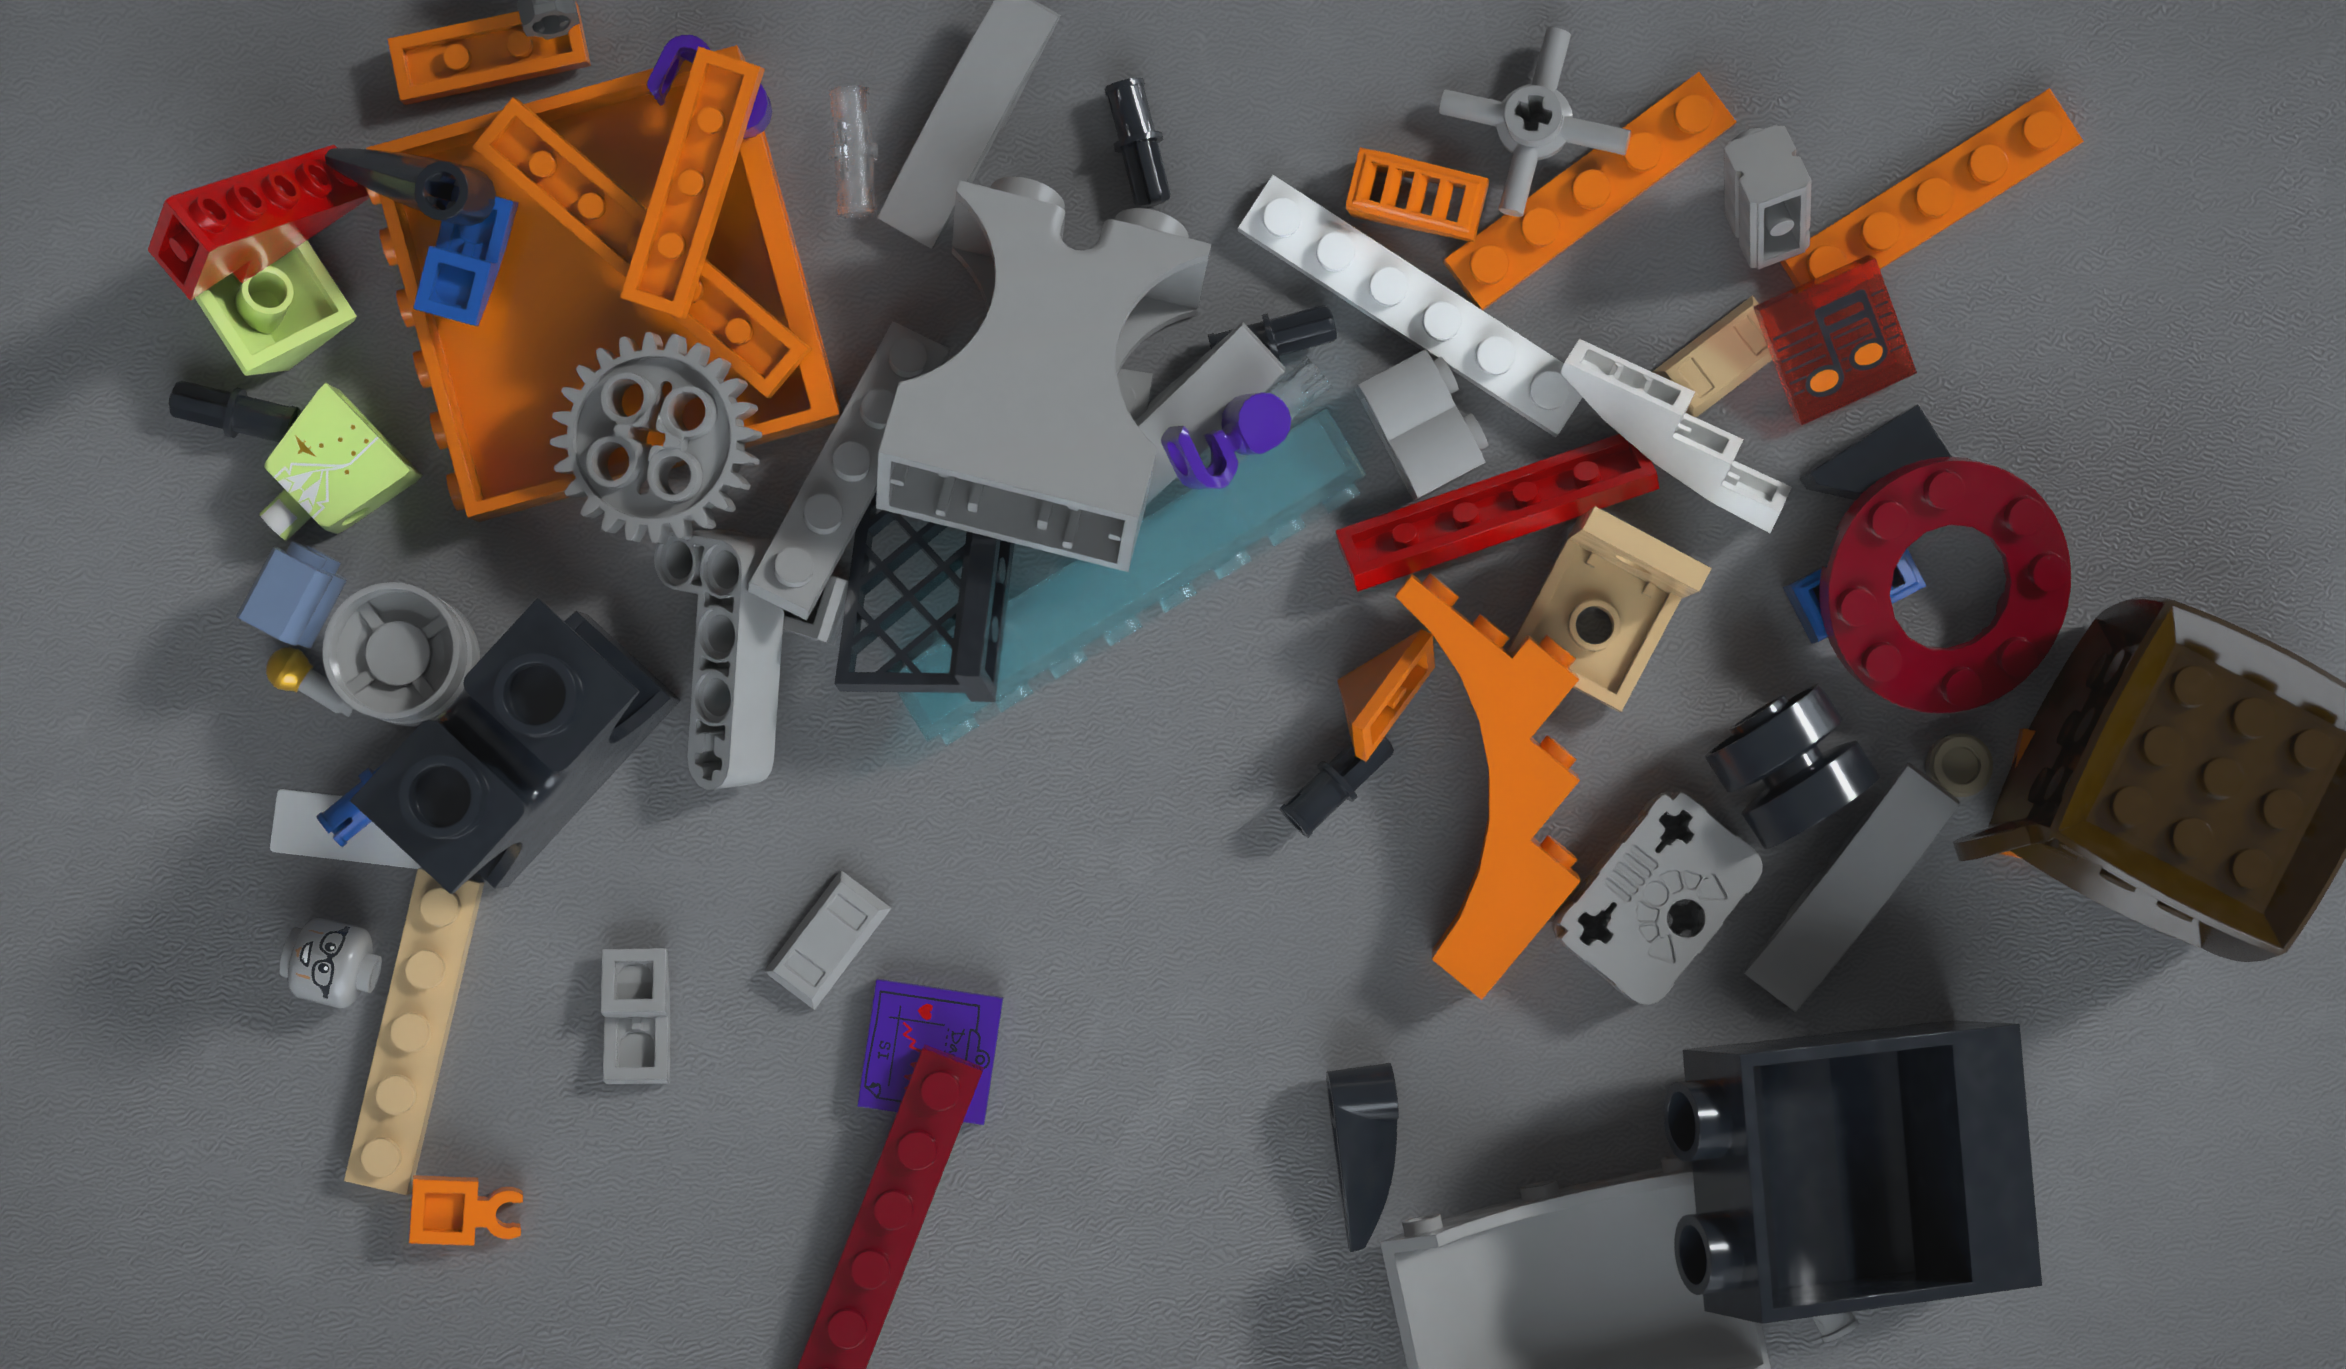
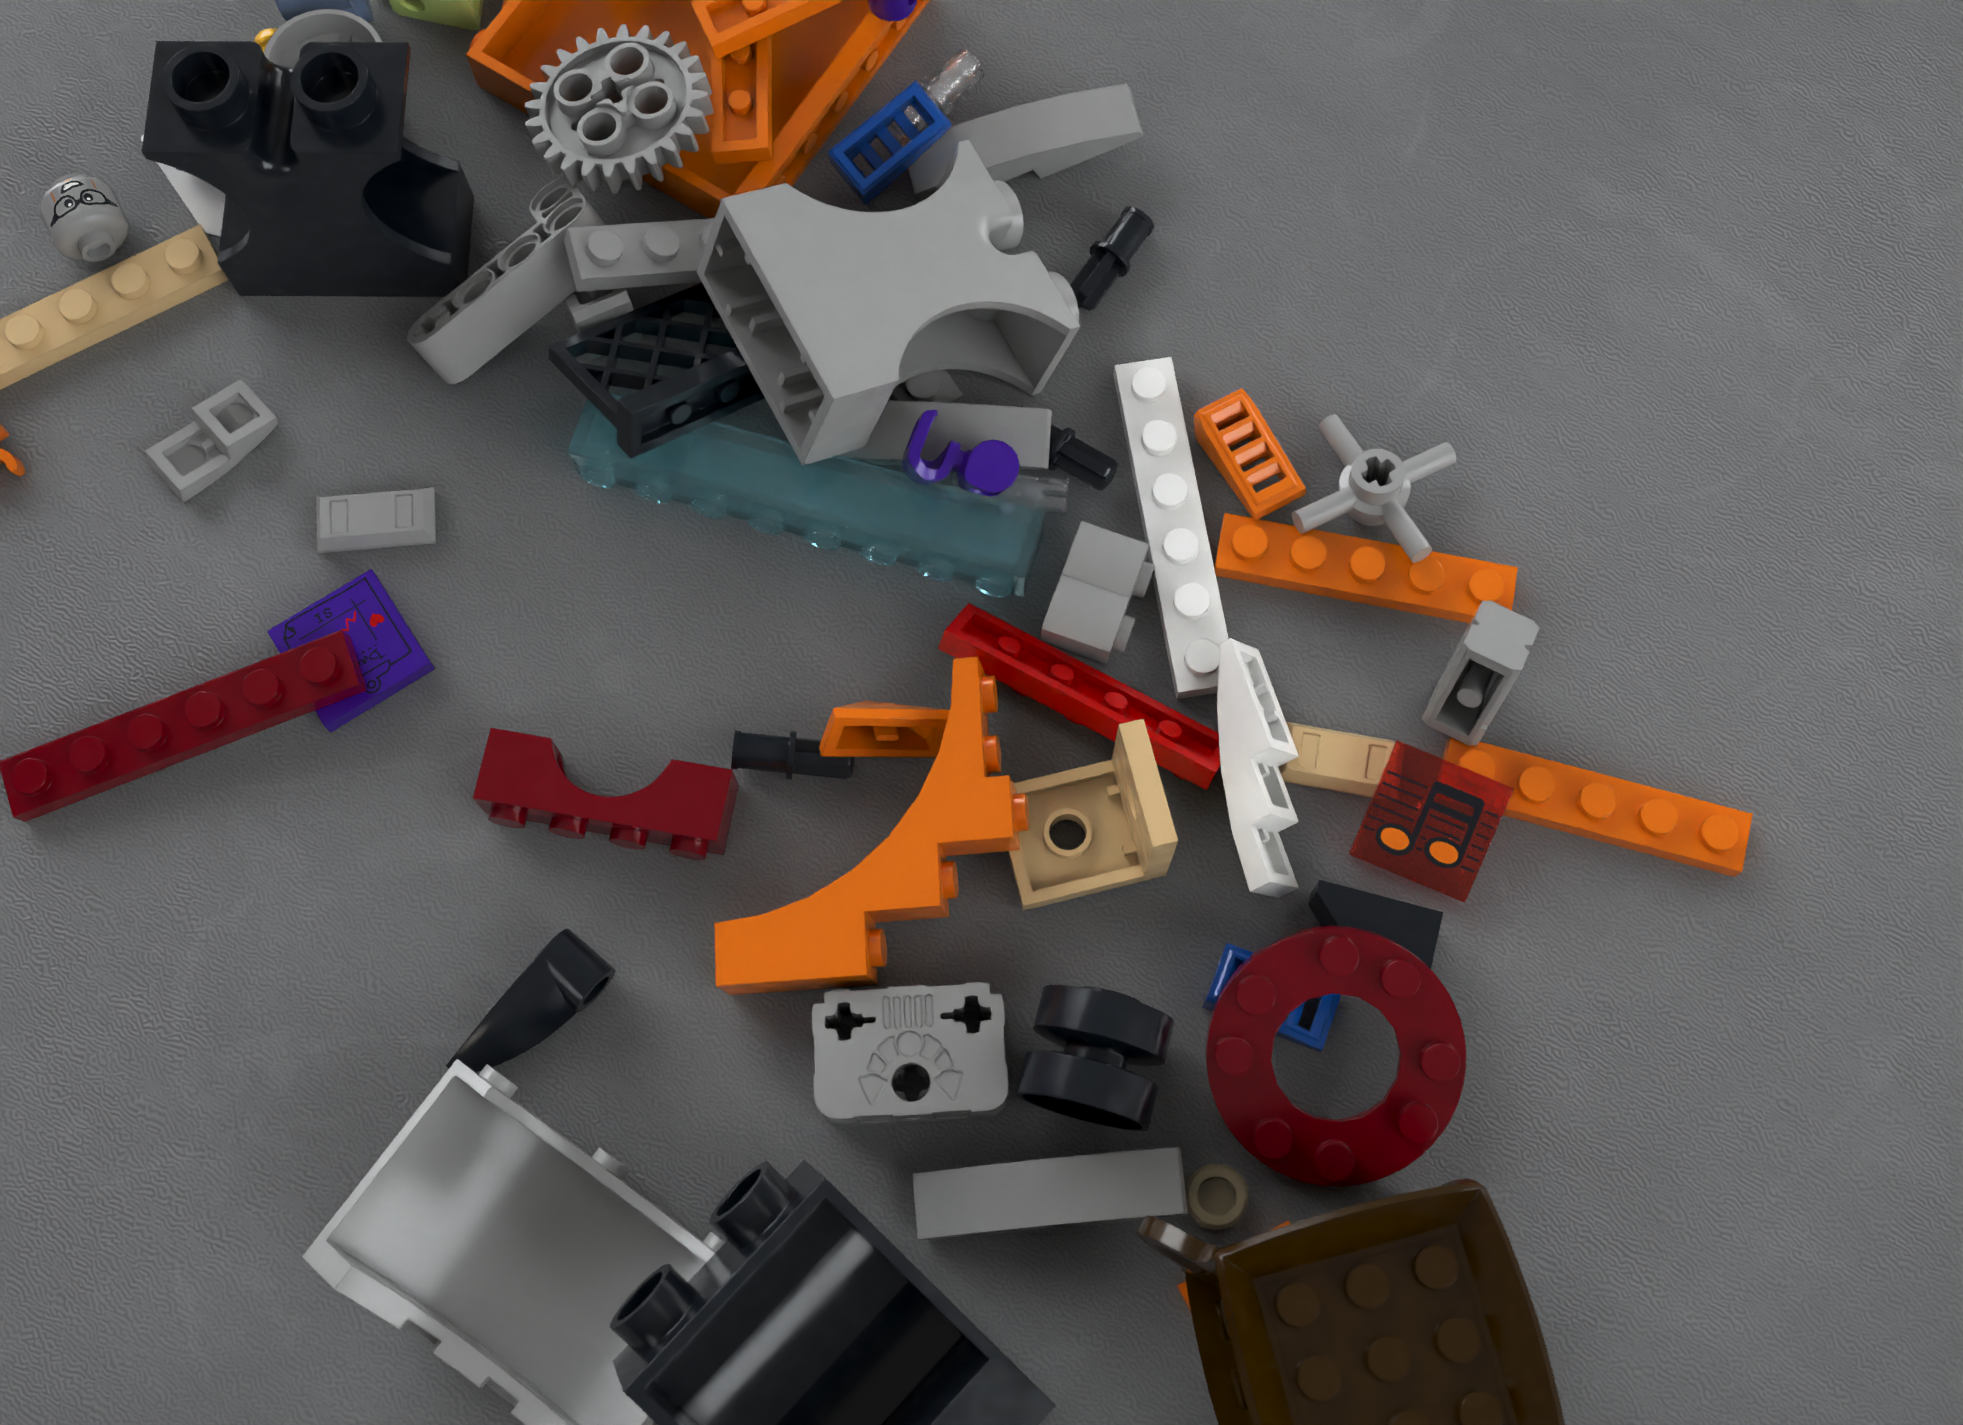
camera: 50 degrees right, 15 degrees down
(873, 284) = (859, 141): none -> blue slope
(1178, 1003) = (682, 808): none -> dark red arch

